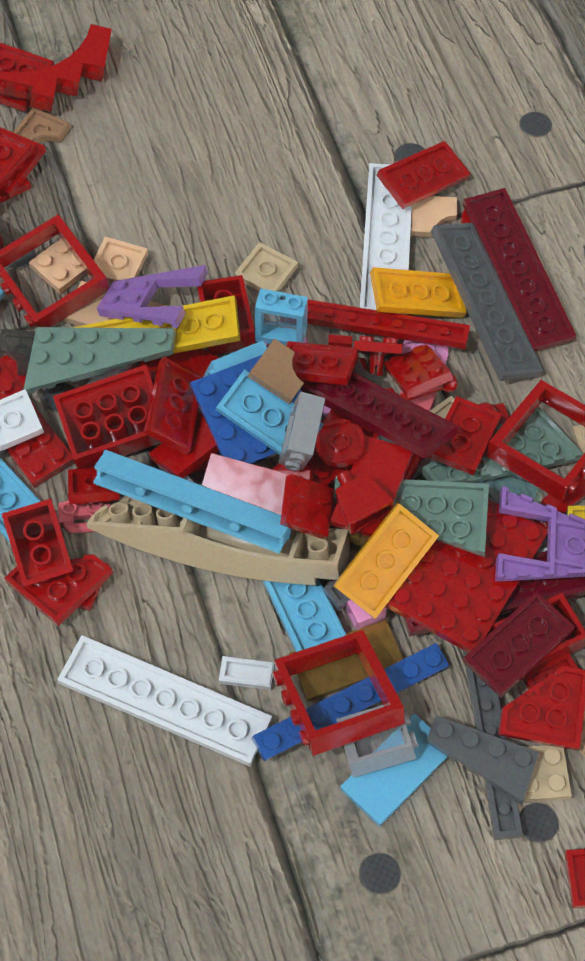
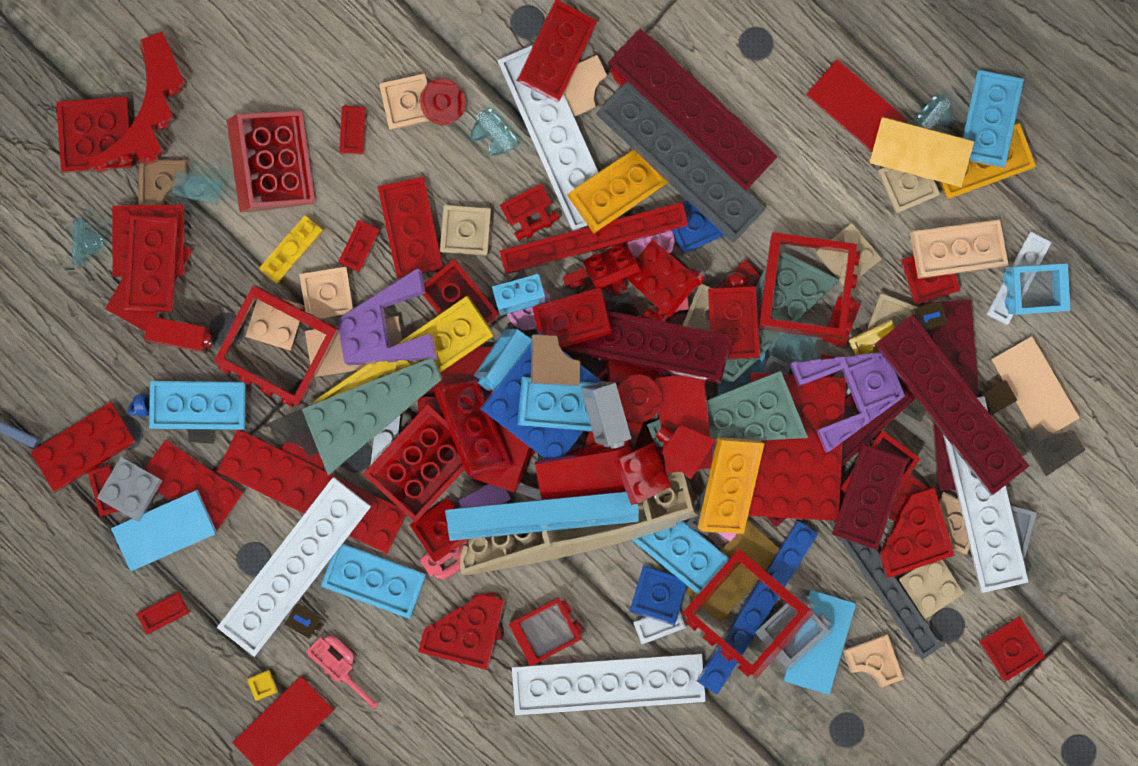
camera: 30 degrees left, 25 degrees up
(37, 542) = (430, 611): red slope -> none
(63, 139) = (196, 188): none -> clear light blue tile
(110, 221) = (291, 249): none -> yellow plate
(134, 619) = (547, 630): none -> window
(137, 151) = (270, 160): none -> red slope
(168, 241) = (359, 246): none -> red plate
(218, 163) = (352, 130): none -> red tile
(222, 242) = (410, 227): none -> red plate
(259, 643) = (658, 596): none -> blue tile
(275, 161) = (402, 101): none -> light nougat plate
(305, 171) = (442, 102): none -> red tile
(330, 275) = (525, 205): none -> red plate
(334, 204) = (490, 124): none -> clear light blue tile
(446, 813) = (876, 659): none -> light nougat tile
(471, 362) = (699, 230): none -> blue tile
(493, 758) = (890, 599): dark grey wing -> none

